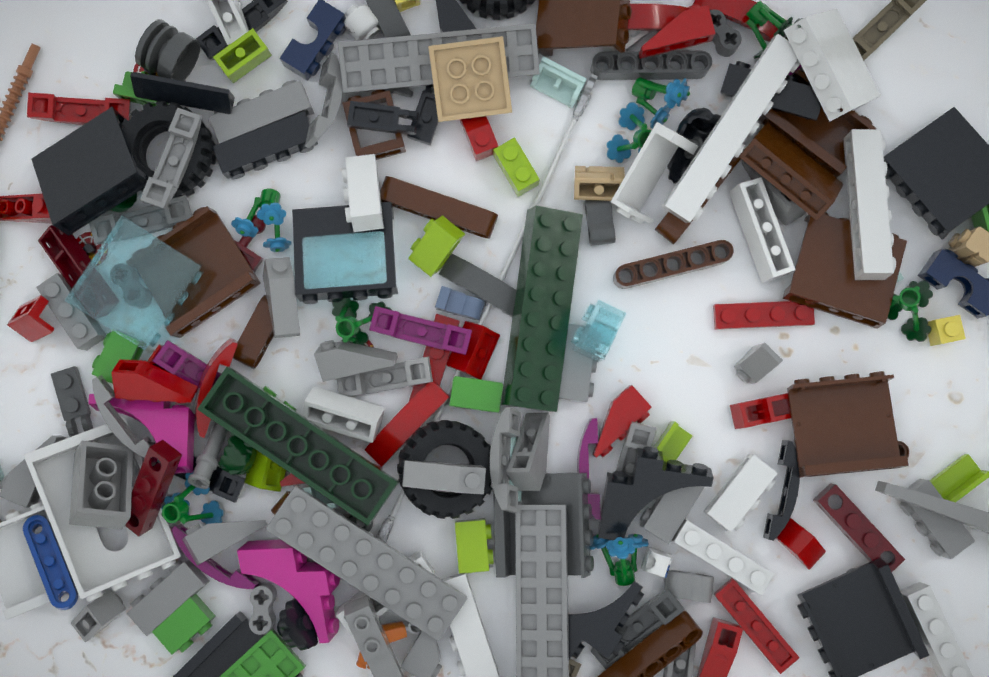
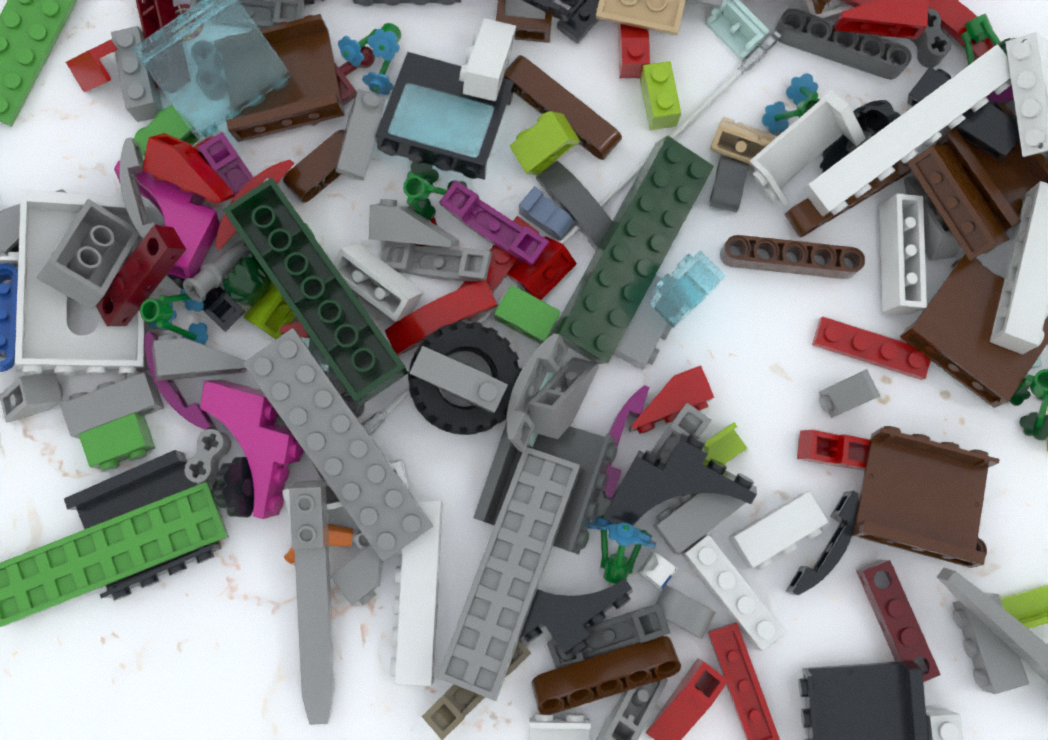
camera: 20 degrees right, 5 degrees down
(72, 399) = (100, 161): dark grey hinge -> none
(472, 545) = (461, 475): lime brick -> none
(674, 93) = (859, 74): plant -> none
(801, 544) = (826, 613): red slope -> none

